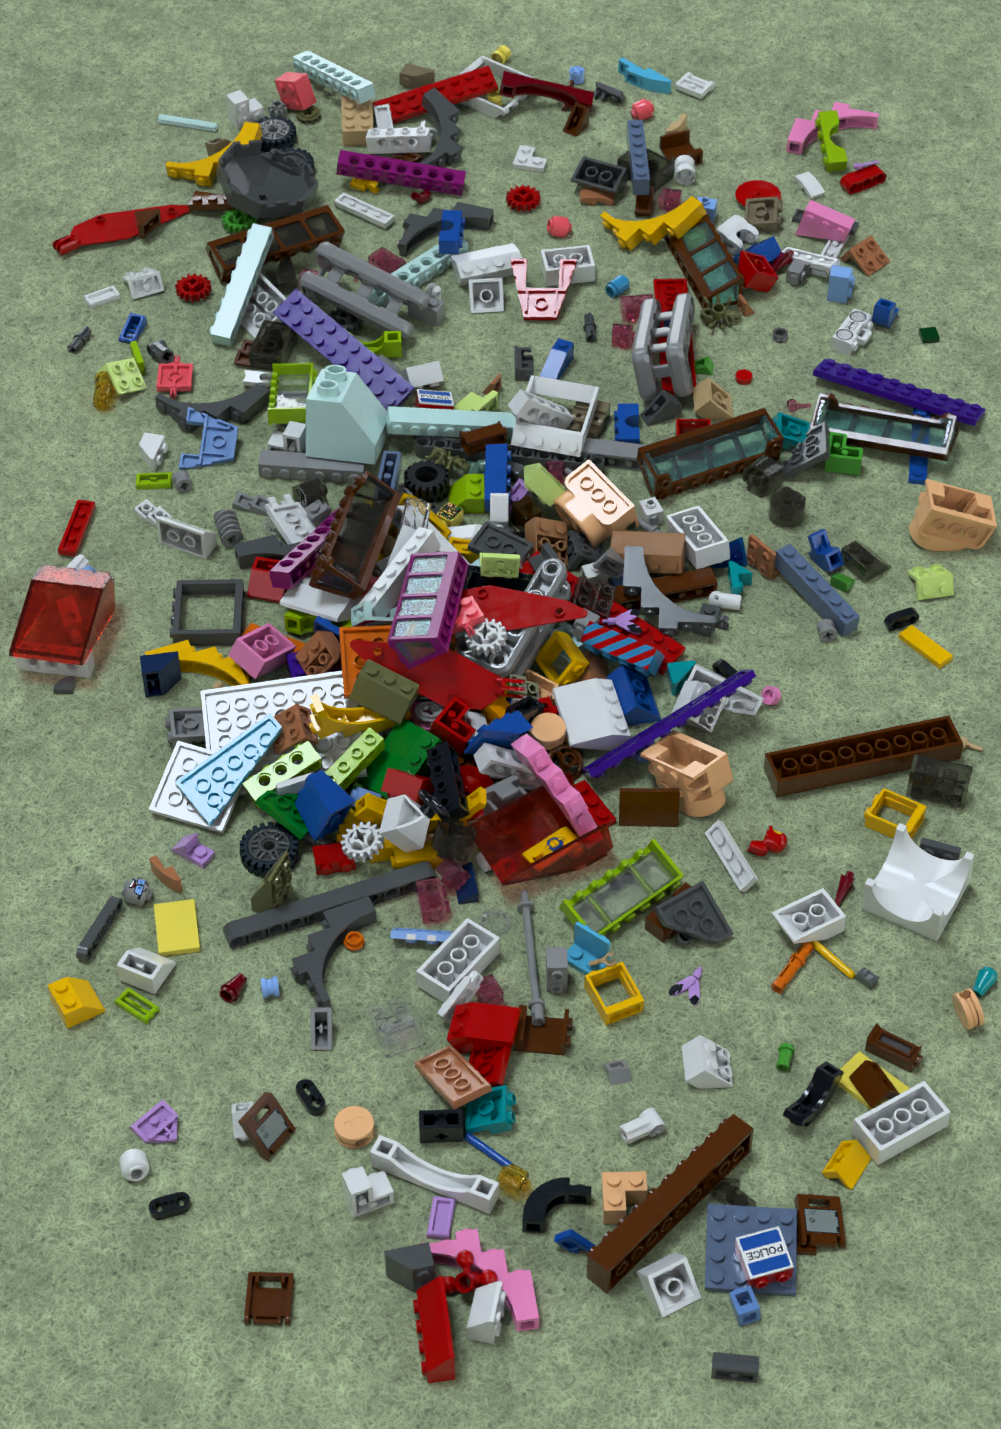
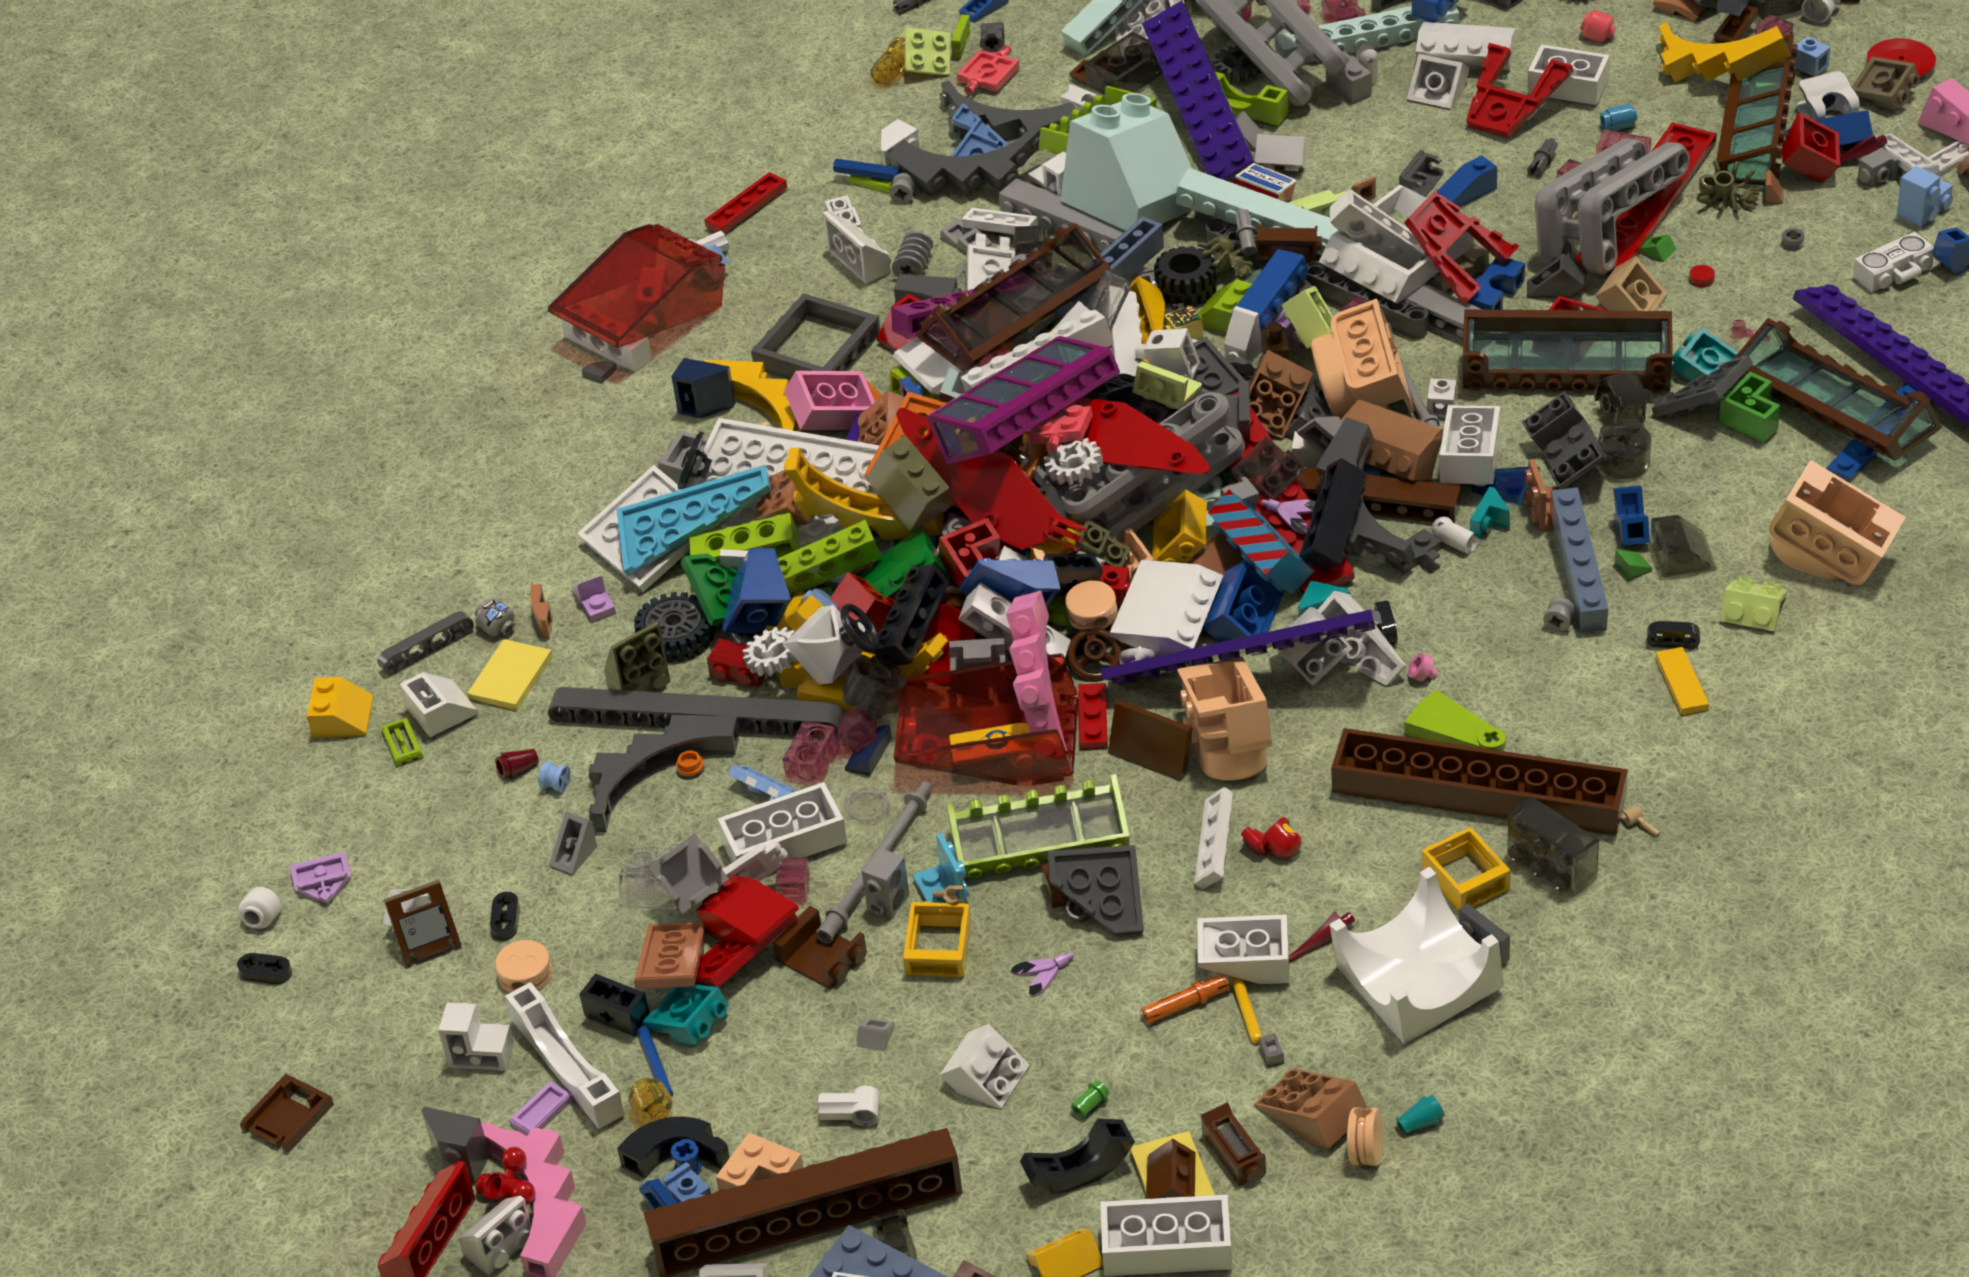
camera: 35 degrees right, 5 degrees down
(146, 476) = (865, 169): none -> blue axle
(206, 728) = (689, 462): none -> black shield
(222, 457) = (965, 172): none -> dark grey arch
(271, 484) = (996, 220): none -> white hinge
(432, 1016) = (688, 873): none -> light grey panel
(451, 439) = (1245, 232): none -> light grey axle
(476, 540) = (1170, 351): none -> white torso
(569, 1207) = (681, 1155): none -> blue bush
(585, 399) = (1438, 225): none -> red wing
(586, 1226) = (685, 1184): none -> medium blue brick
(593, 755) = (1135, 654): none -> white piece
(660, 614) = (1333, 515): none -> black brick
(753, 515) = (1564, 439): none -> dark grey slope
(814, 727) = (1443, 719): none -> lime piece
(919, 1002) = (1312, 1105): none -> medium nougat slope

